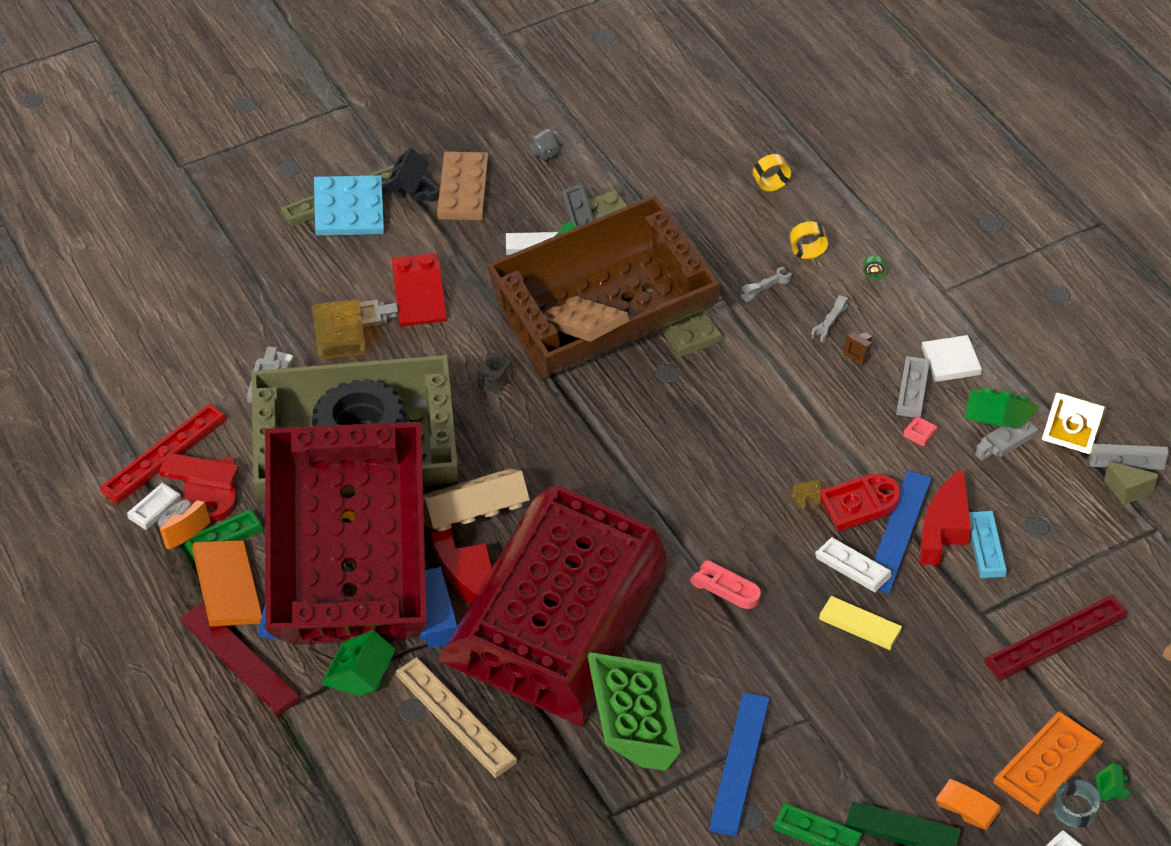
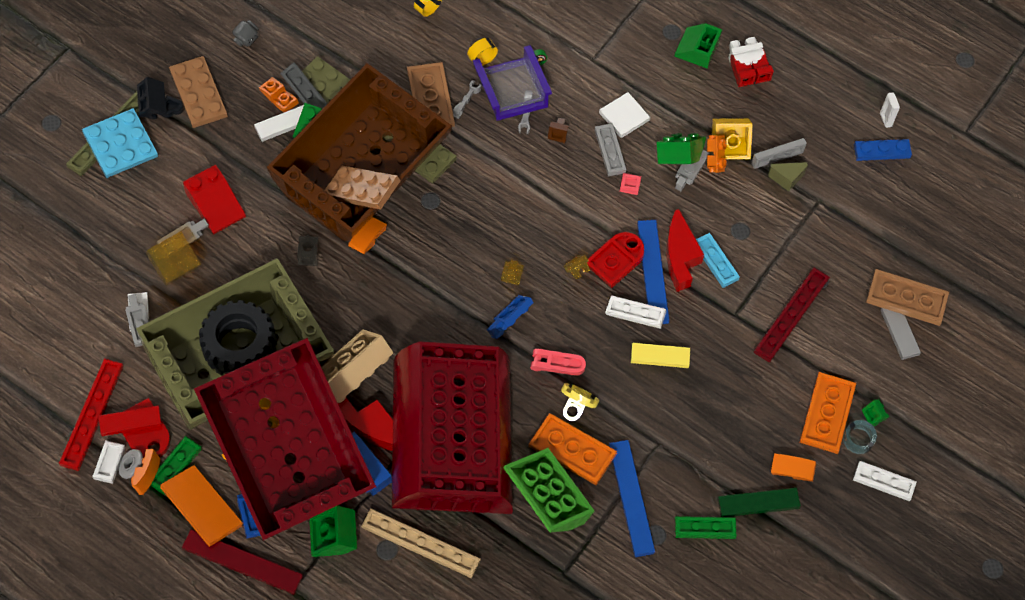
camera: 30 degrees left, 15 degrees up
(549, 213) = (278, 95): none -> orange slope
(568, 380) = (365, 238): none -> orange slope
(692, 517) = (509, 315): none -> blue hinge
(696, 683) = (573, 448): none -> orange tile
(723, 474) = (512, 272): none -> clear yellow tile
(728, 628) = (579, 398): none -> light yellow tile
(729, 260) = (430, 88): none -> medium nougat plate
(827, 287) = (515, 85): none -> piece
(1049, 419) = (716, 162): none -> orange hinge
(1085, 313) = (699, 44): none -> green slope
(1141, 344) = (749, 62): none -> hips

